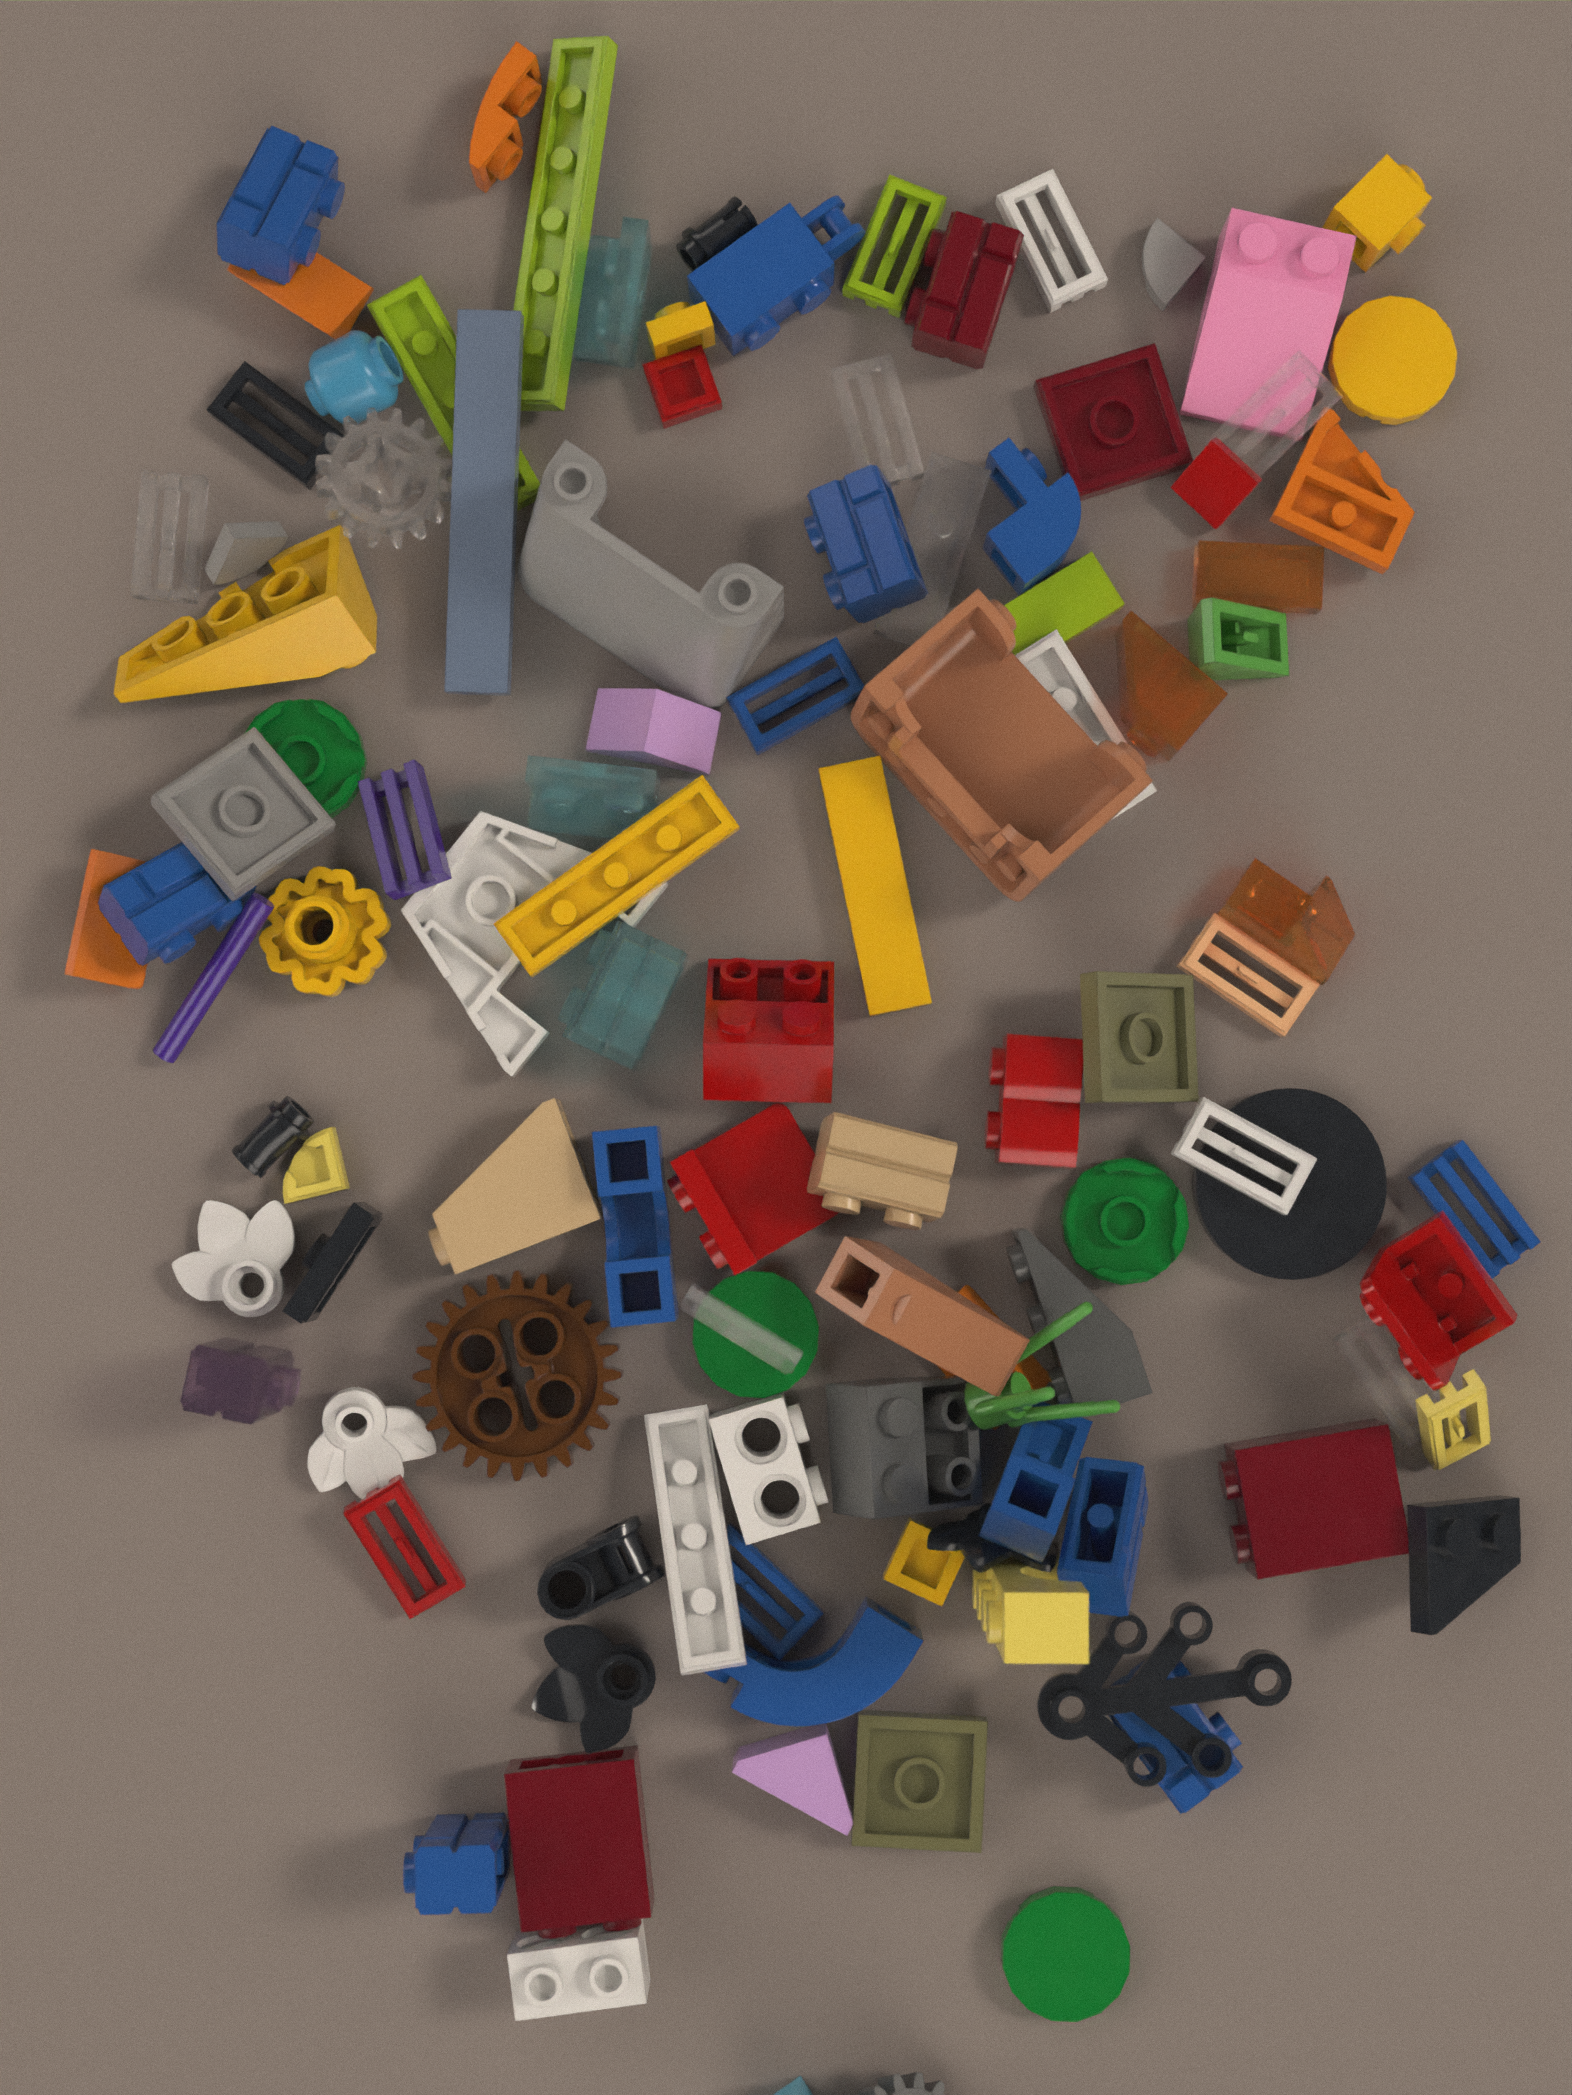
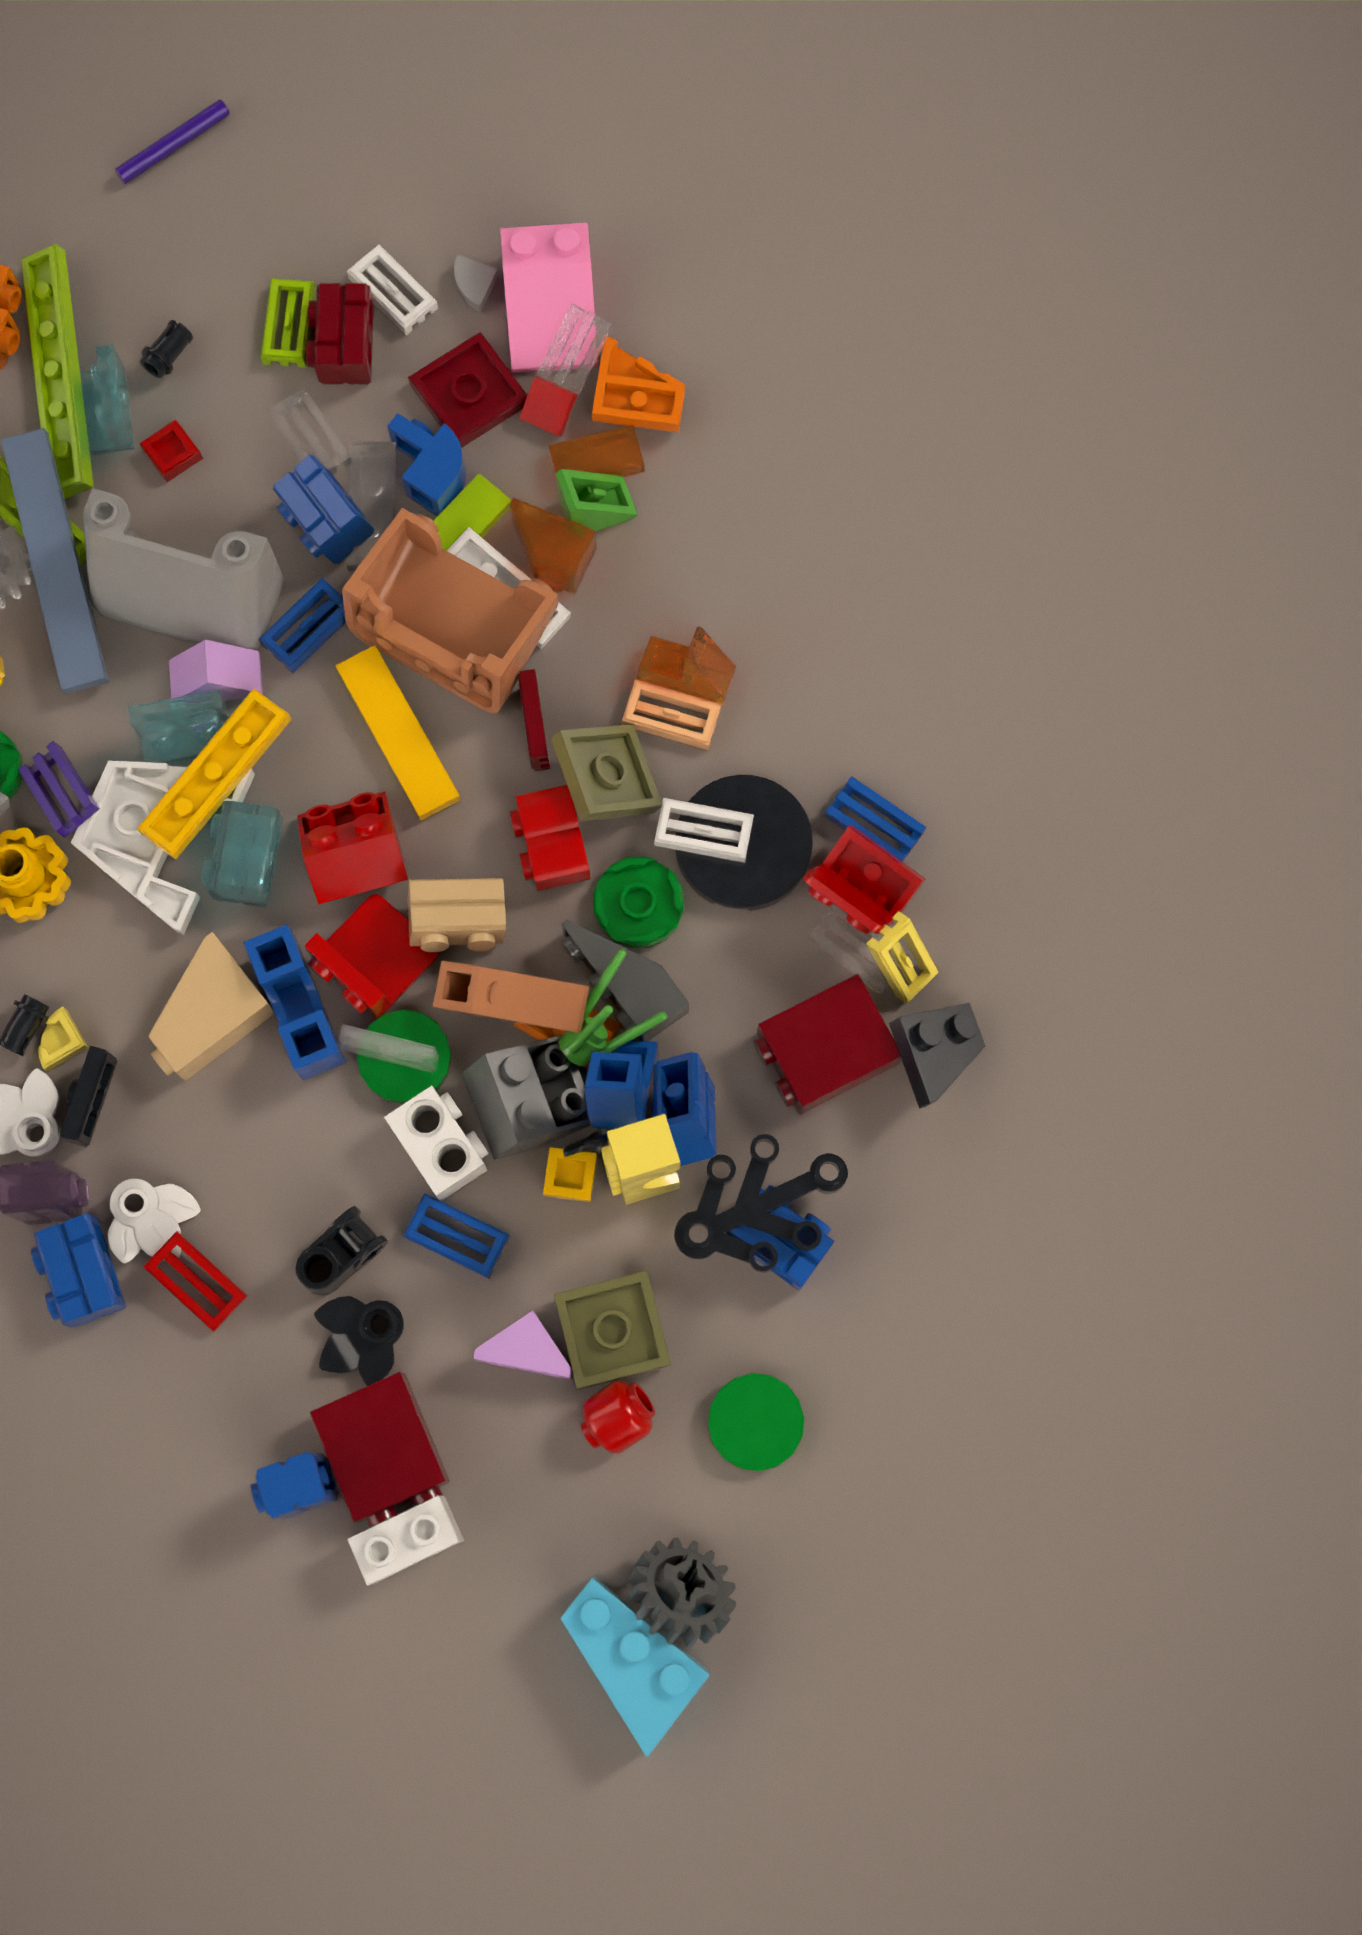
camera: 20 degrees left, 10 degrees down
(259, 1489) = (77, 1271): none -> blue brick
(461, 1389) = (206, 1157): reddish brown gear -> none
(680, 328) = (157, 411): yellow plate -> none
(695, 1540) = (400, 1207): white tile -> none
(773, 273) = (209, 360): blue brick -> none
(832, 1683) = (522, 1285): blue arch -> none
(892, 1896) = (617, 1417): none -> red head
(1062, 930) = (533, 720): none -> dark red tile
(1381, 211) = (606, 207): yellow brick -> none
(1392, 360) = (642, 298): yellow tile -> none

